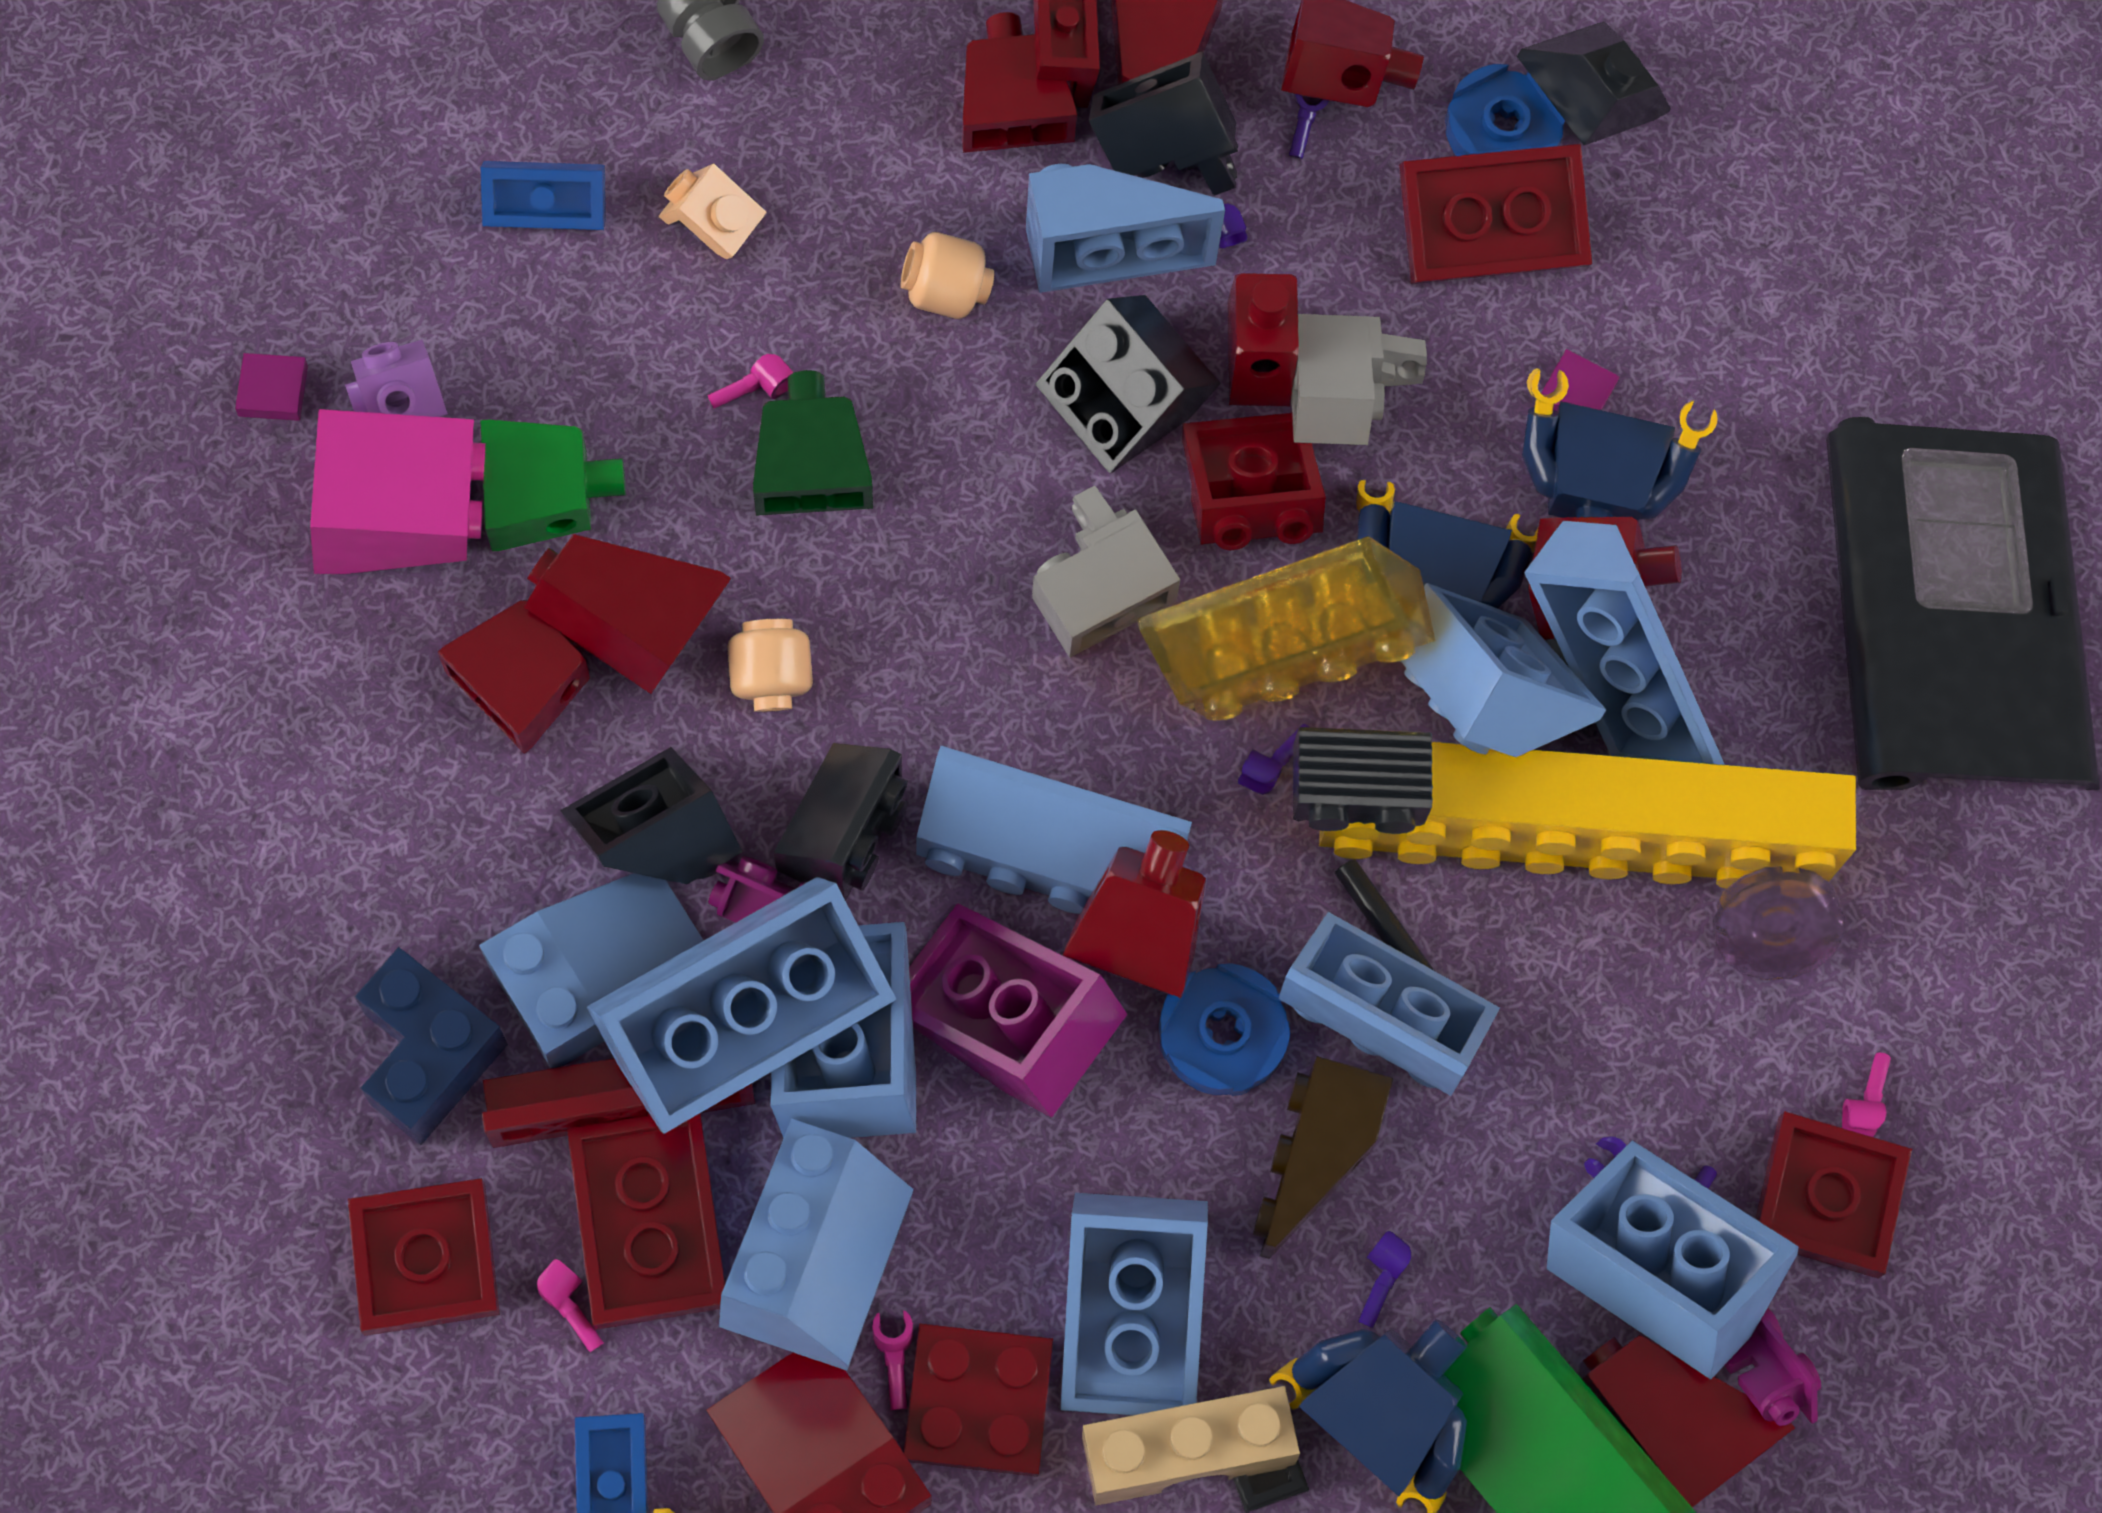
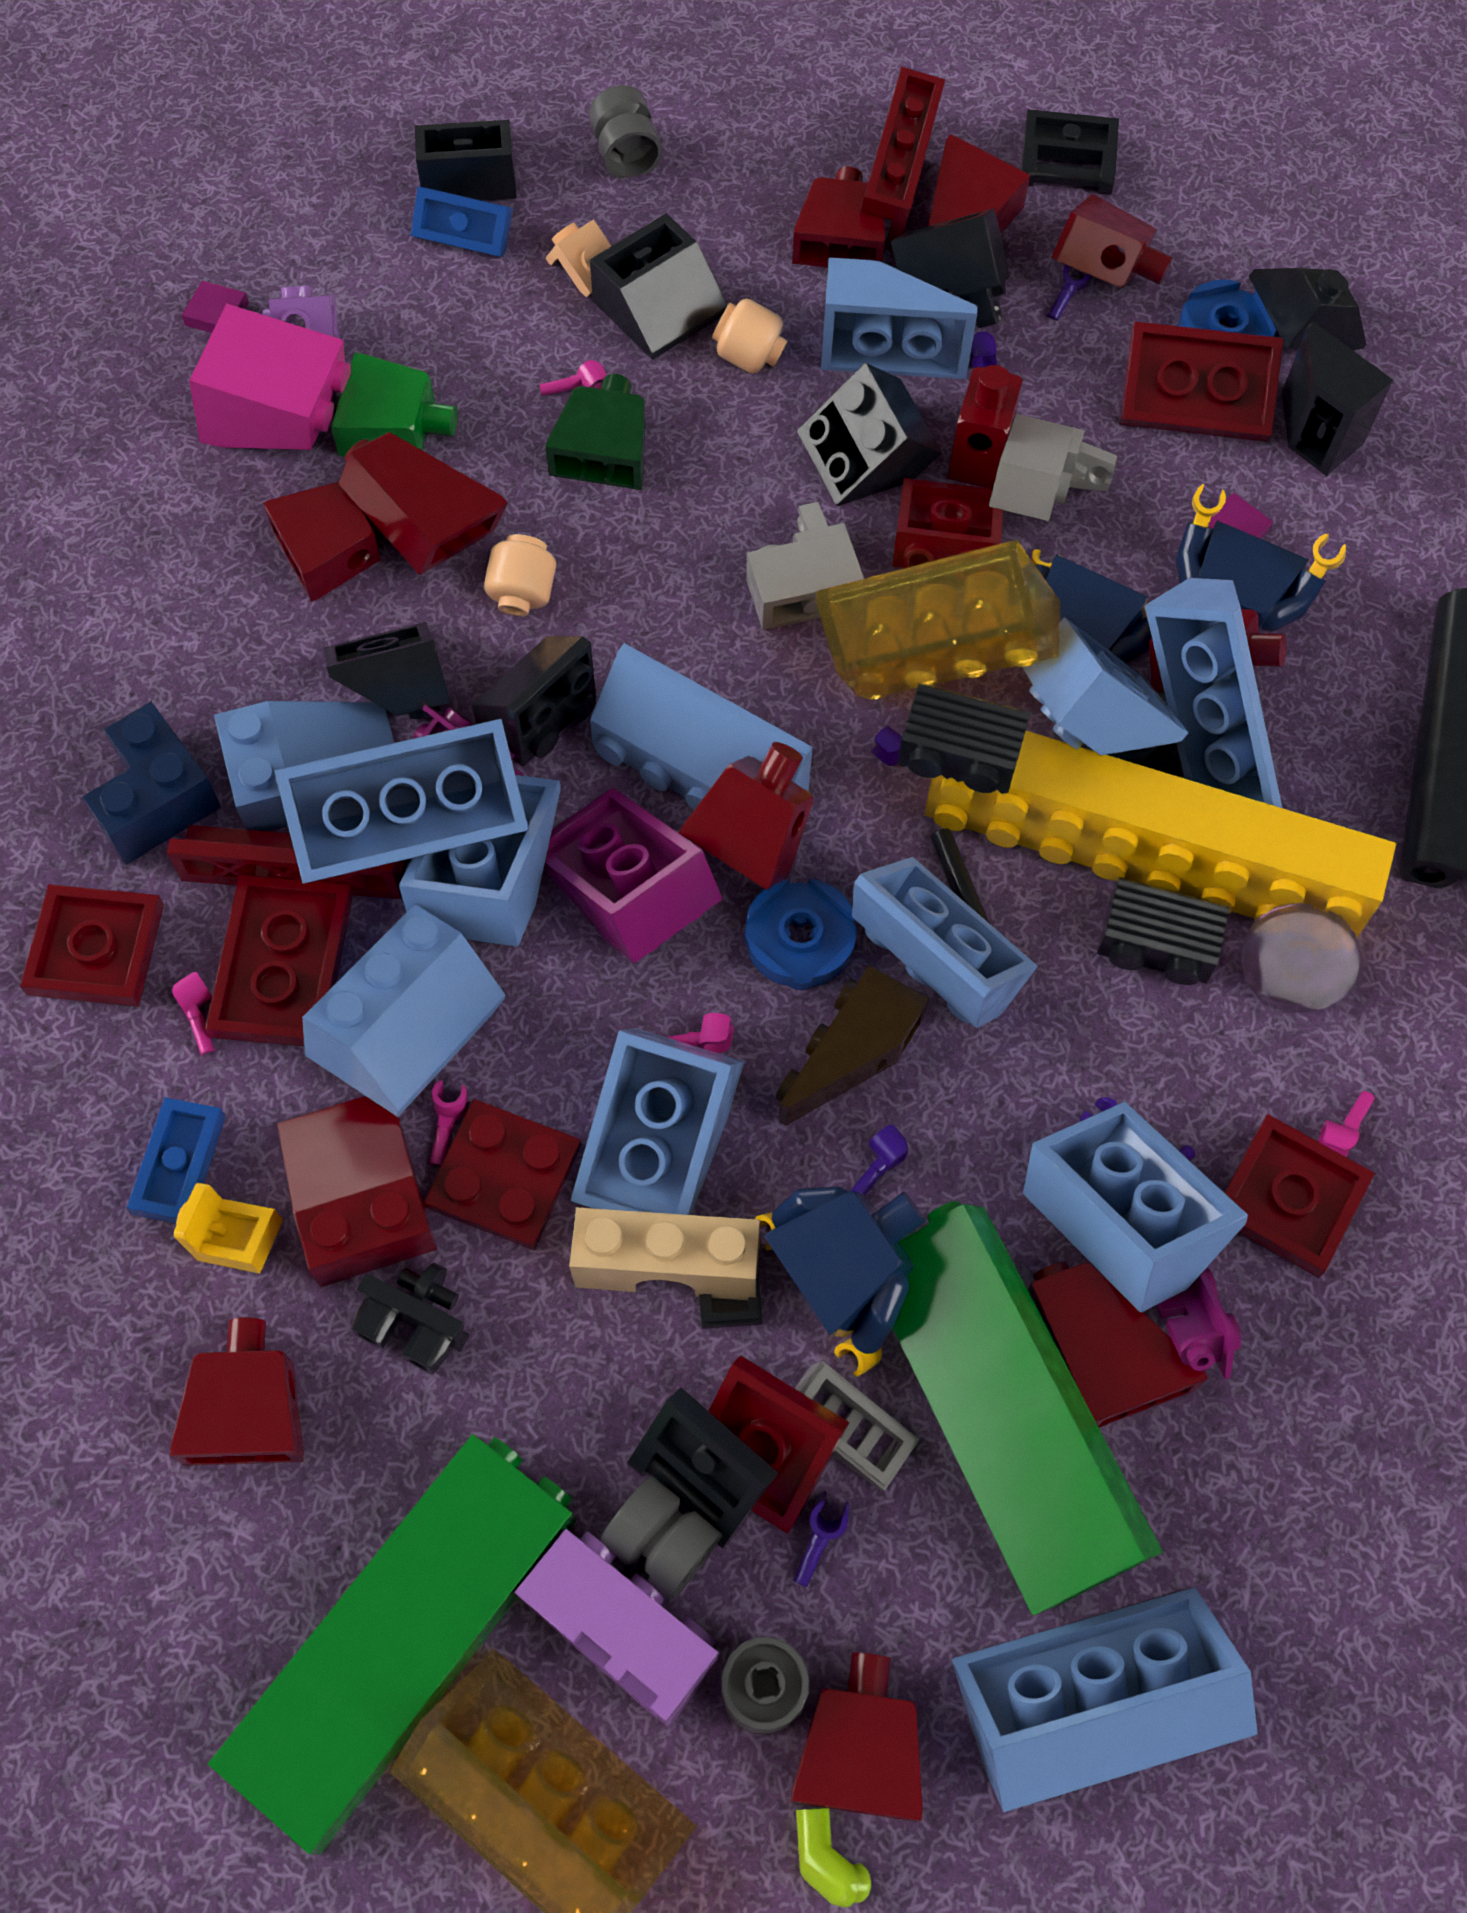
camera: 20 degrees right, 5 degrees down
(523, 102) = (467, 158): none -> black slope
(817, 237) = (656, 286): none -> black slope
(1162, 1177) = (714, 1036): none -> dark pink hand
(1621, 926) = (1163, 931): none -> black brick
(1649, 210) = (1330, 400): none -> black slope

